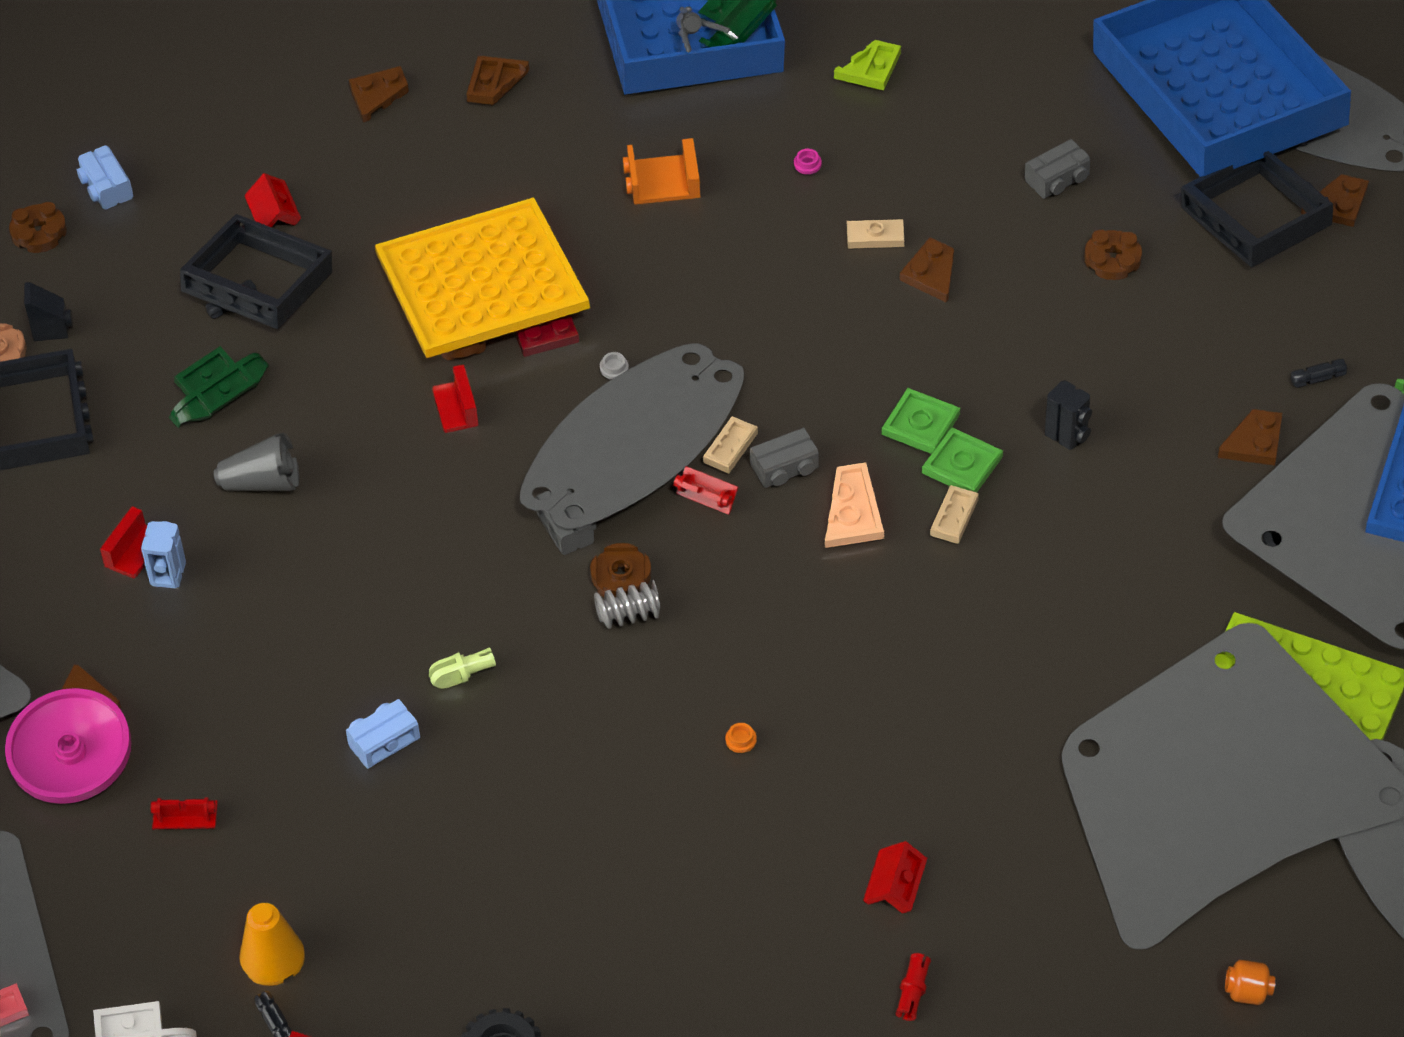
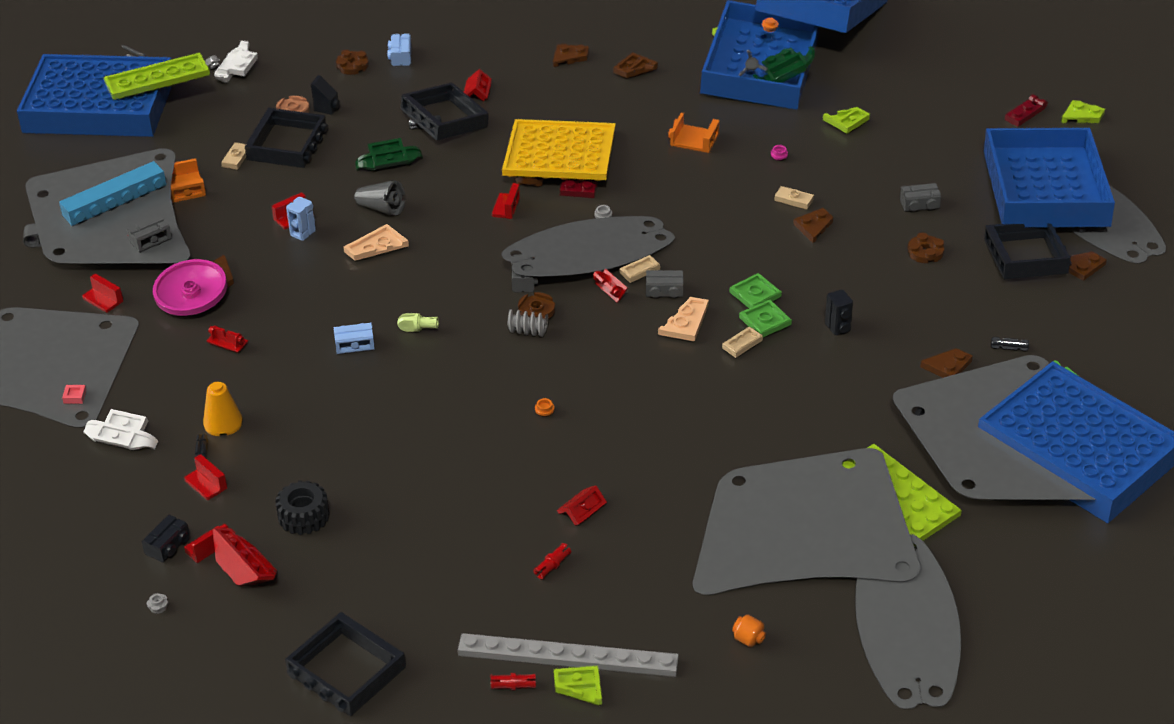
camera: 25 degrees right, 10 degrees down
(303, 550) = (377, 242): none -> light nougat wing

